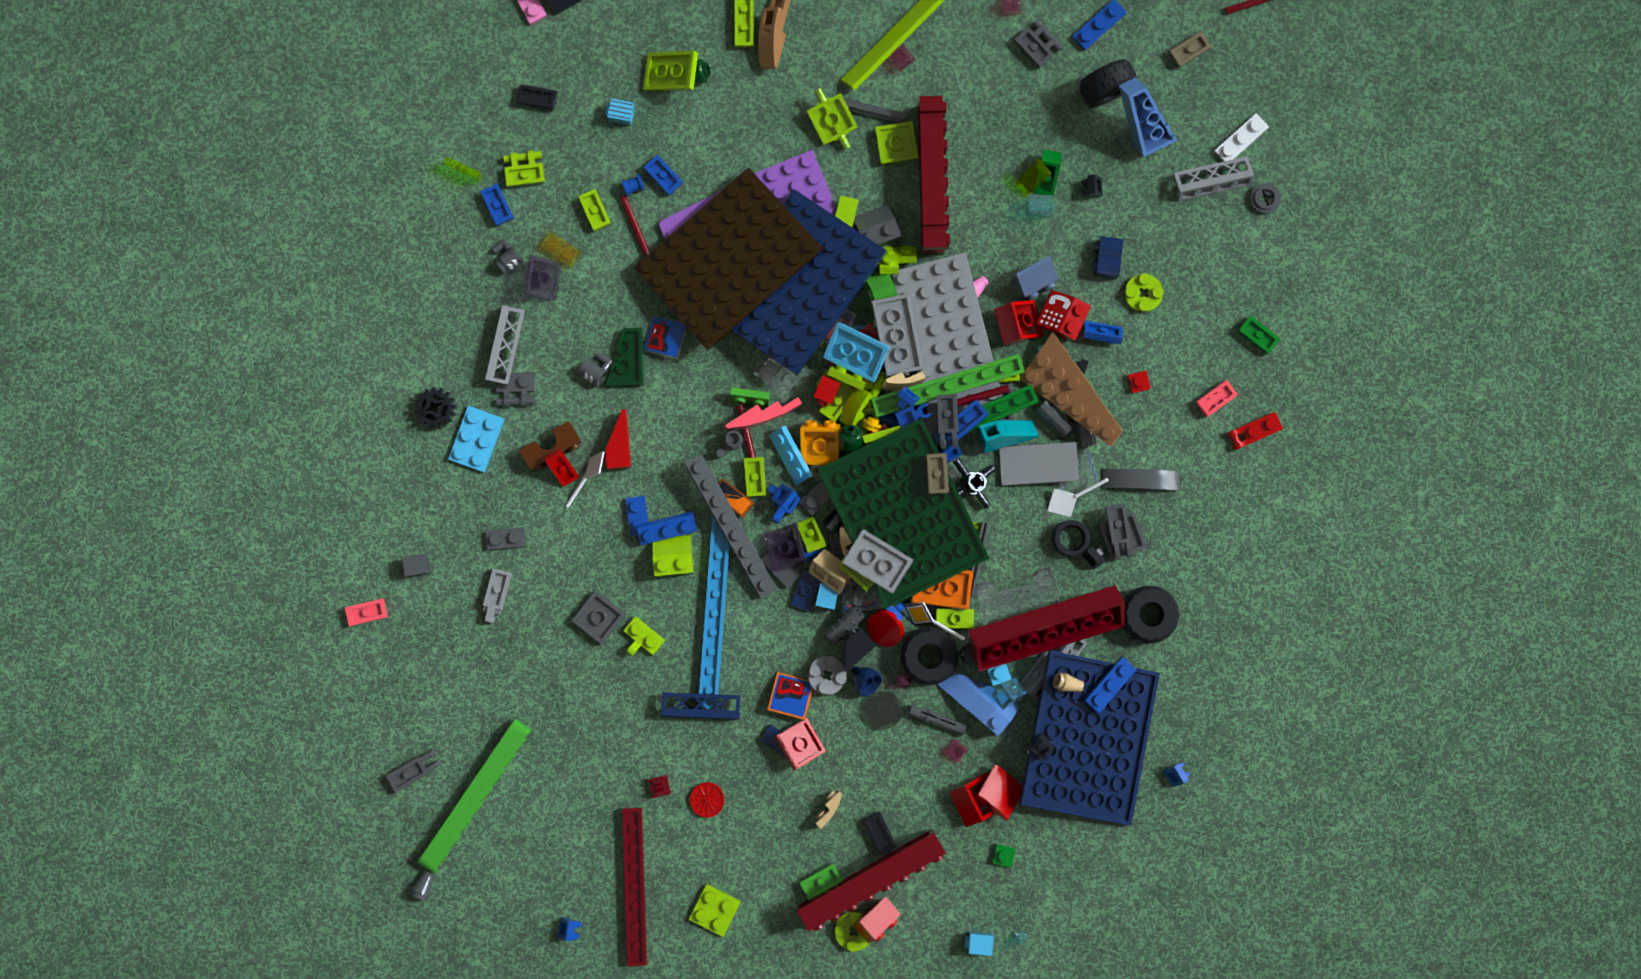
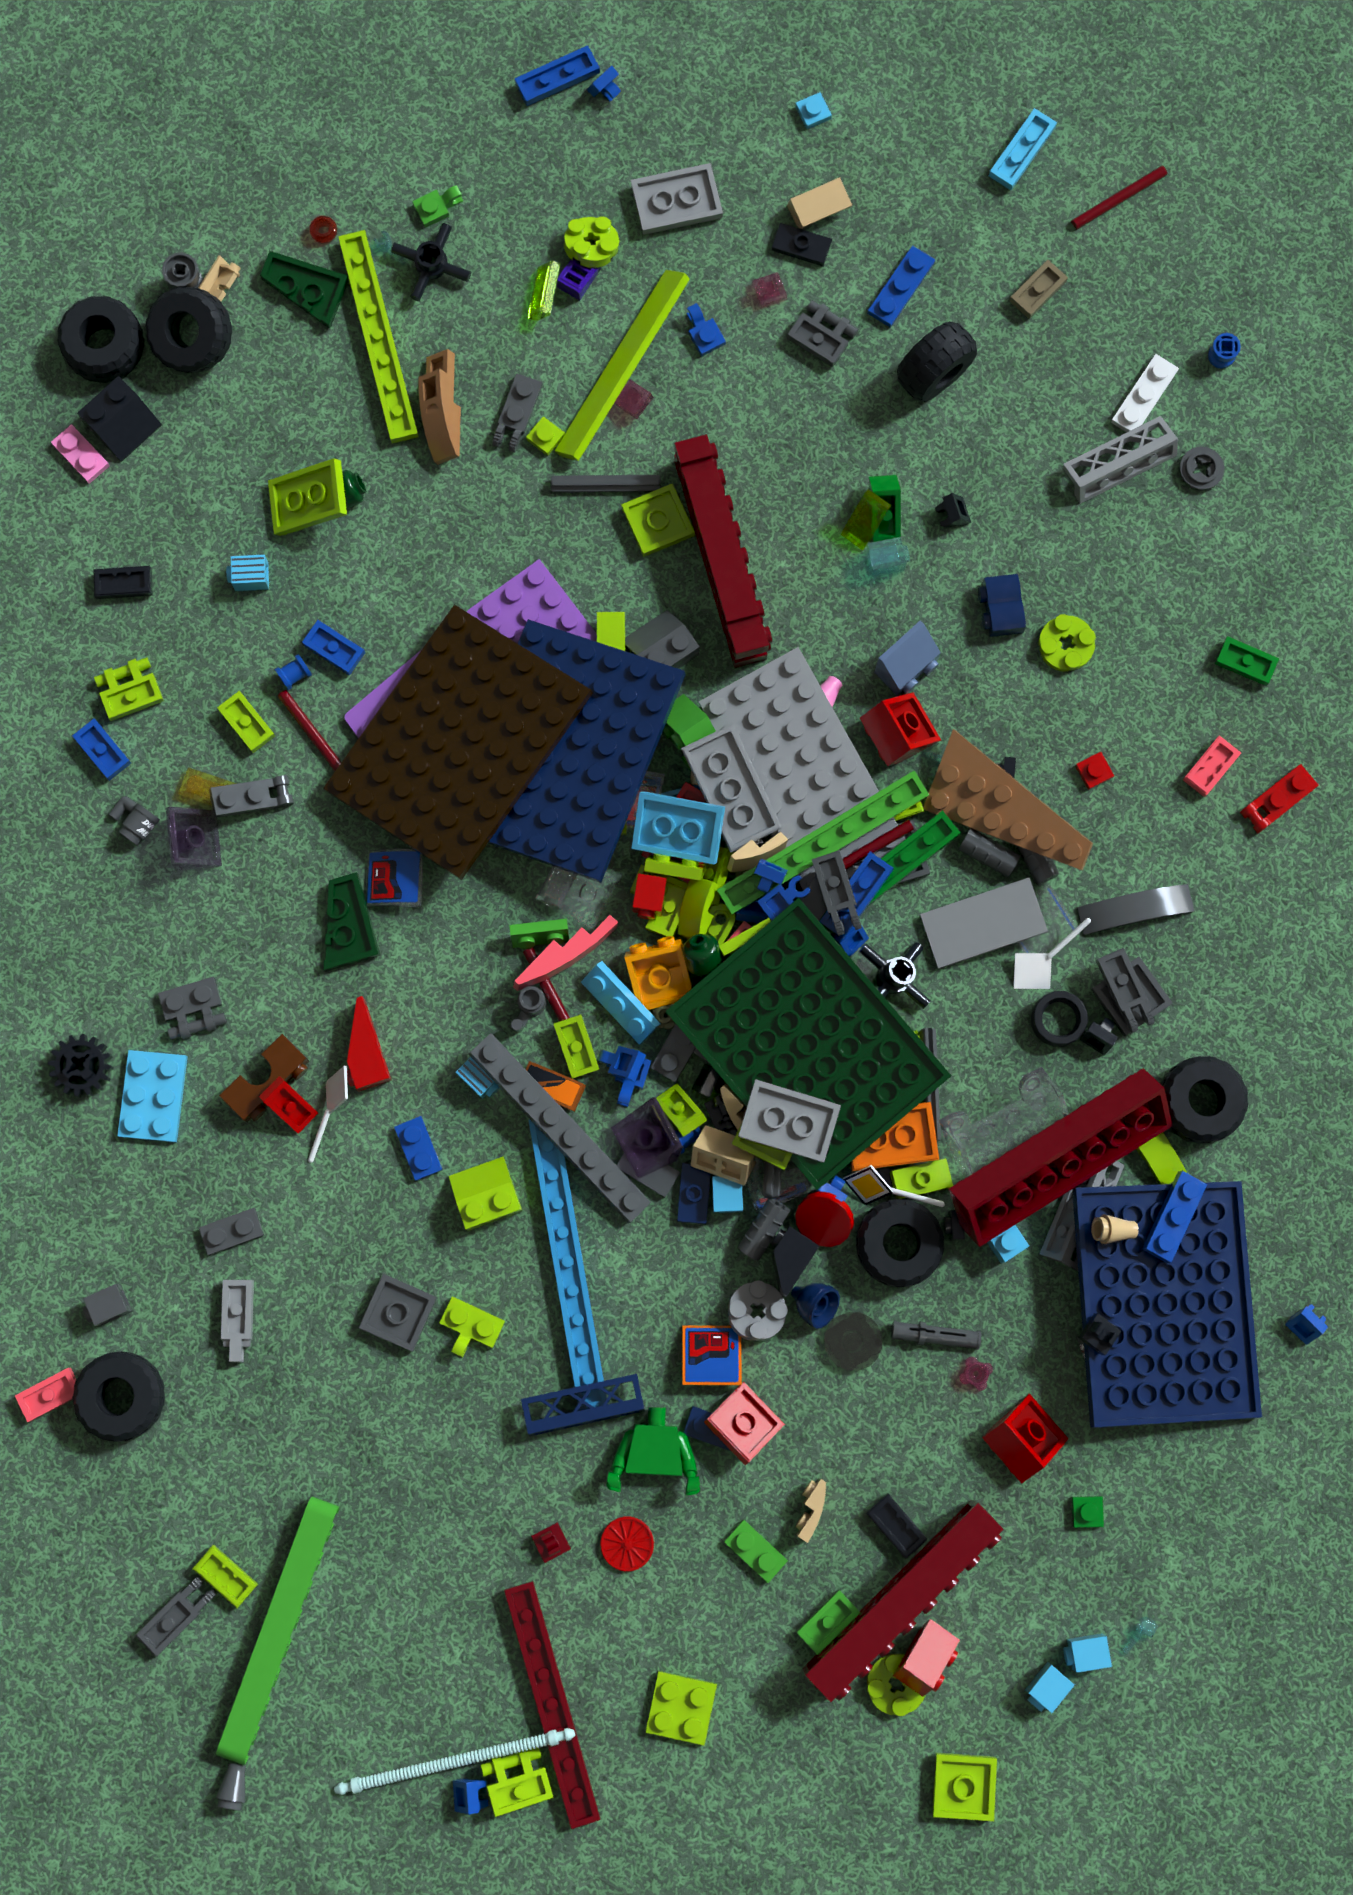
camera: 15 degrees left, 5 degrees down
(391, 628) = (90, 1389): none -> black tyre
(450, 754) = (225, 1576): none -> lime plate
(463, 169) = (39, 710): clear neon green tile -> none
(498, 342) = (151, 951): light grey fence -> none
(585, 260) = (250, 796): none -> dark grey plate
(592, 372) = (301, 955): dark grey piece -> none
(600, 934) = (520, 1790): none -> lime plate
(629, 907) = (358, 1784): none -> light aqua hose
(666, 528) = (465, 1155): blue plate -> none
(685, 481) = (477, 1079): none -> medium azure brick
(738, 746) = (654, 1451): none -> green torso
(787, 825) = (755, 1551): none -> bright green plate
(823, 45) = (517, 410): none -> dark grey hinge
(832, 118) = (556, 508): lime plate -> none
(837, 67) = (545, 436): none -> lime plate
(871, 424) = (727, 926): yellow plate -> none
(896, 256) = (698, 678): lime plate -> none
(903, 681) = (871, 1290): clear pink plate -> none
(937, 473) = (843, 970): dark tan plate -> none
(948, 958) = (1048, 1688): none -> medium azure brick
(960, 25) = (705, 334): none -> blue plate
(979, 702) = (1001, 1292): medium blue wedge -> none
(1000, 792) = (1058, 1417): red slope -> none
(1005, 433) = (923, 891): teal slope -> none
(1009, 693) = (1031, 1268): clear light blue brick -> none
(1063, 315) = (961, 702): red slope -> none
(1102, 332) = (1024, 713): blue plate -> none
(1112, 645) = (1161, 1159): none -> lime slope
(1144, 119) = (1003, 398): medium blue wedge -> none
(1299, 125) = (1221, 356): none -> blue wheel

